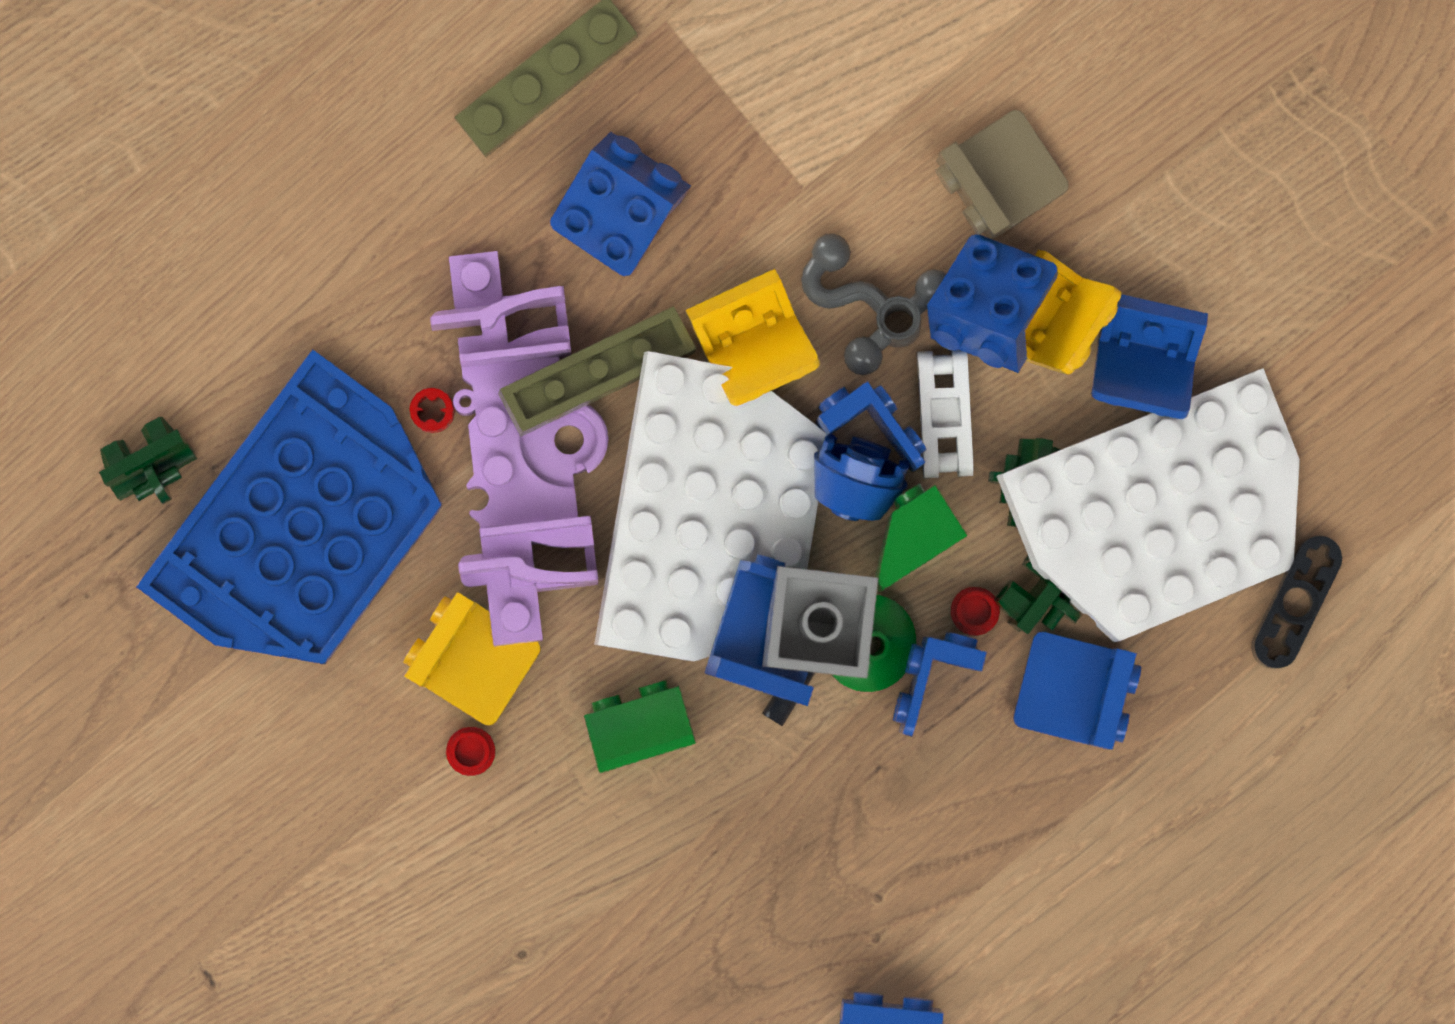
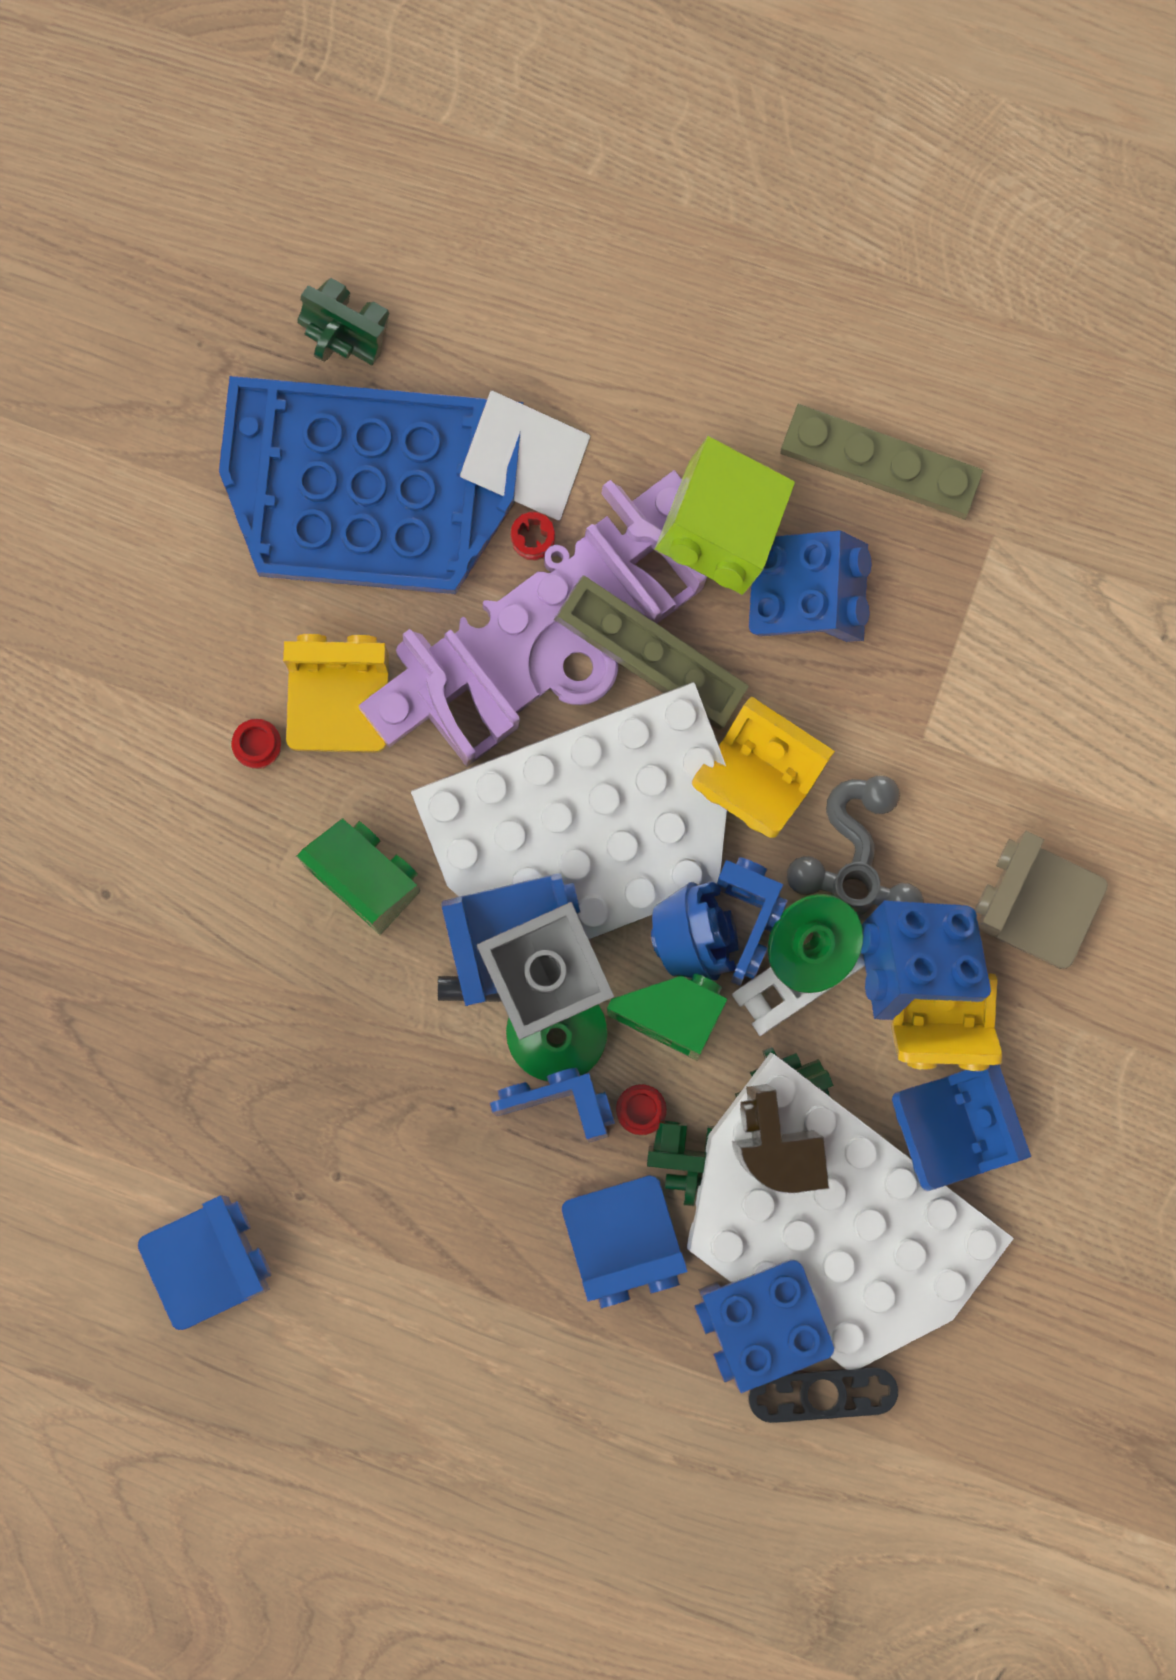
camera: 65 degrees right, 5 degrees down
(370, 357) = (546, 455): none -> white sticker
(520, 238) = (725, 515): none -> lime brick
(942, 383) = (827, 956): none -> green dish
(1092, 524) = (775, 1159): none -> dark brown brick
(1216, 616) = (765, 1325): none -> blue bracket

